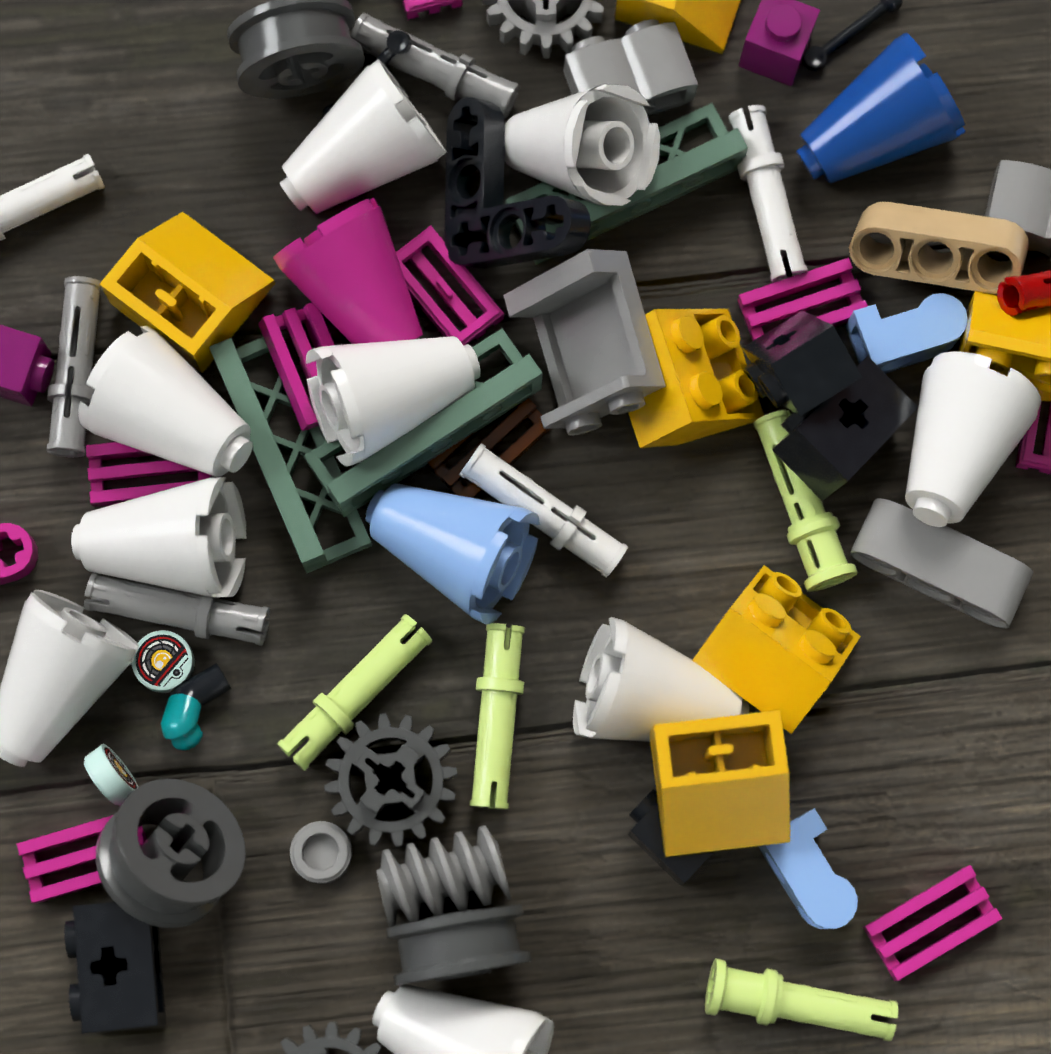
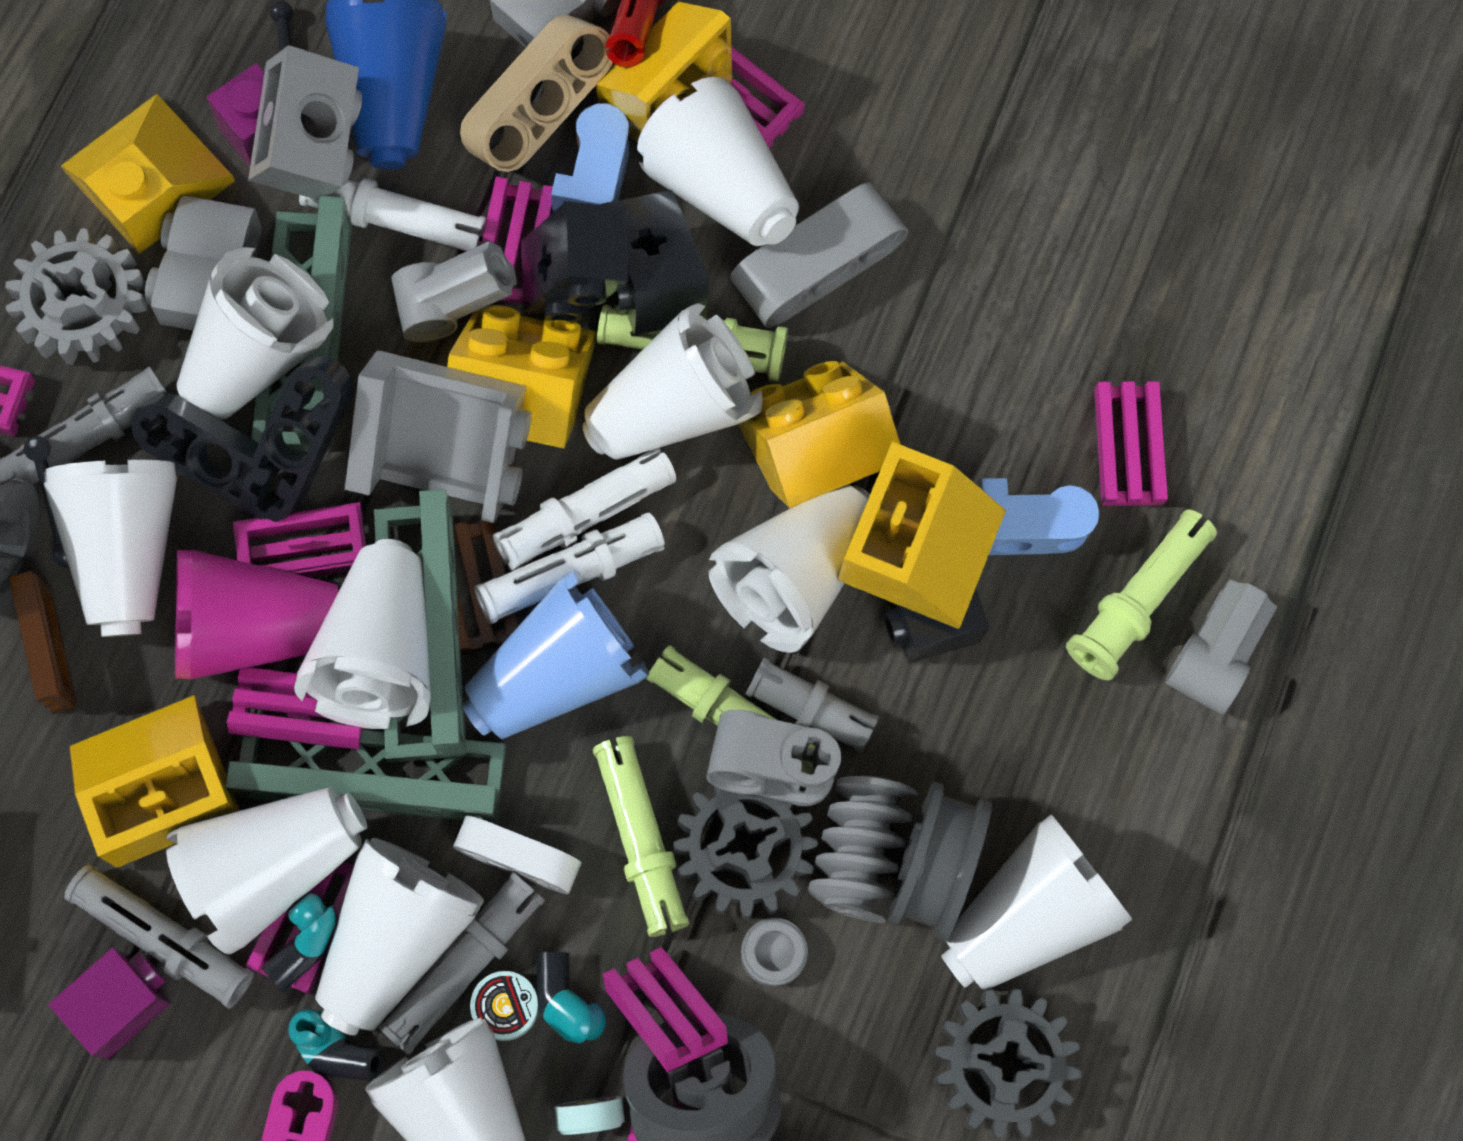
camera: 65 degrees left, 5 degrees down
(55, 549) = (330, 1052): none -> arm
(122, 482) = (307, 946): none -> arm
(241, 757) = (645, 977): none -> dark pink tile
(250, 142) = (43, 642): none -> reddish brown tile
(284, 603) = (517, 854): none -> white beam
(465, 749) = (765, 758): none -> light grey piece
(540, 771) = (812, 705): none -> light grey pin
(610, 499) = (565, 519): none -> white pin
(714, 272) = (436, 294): none -> light grey piece
(742, 510) = (674, 389): none -> white cone
(751, 76) = (282, 149): none -> light grey brick

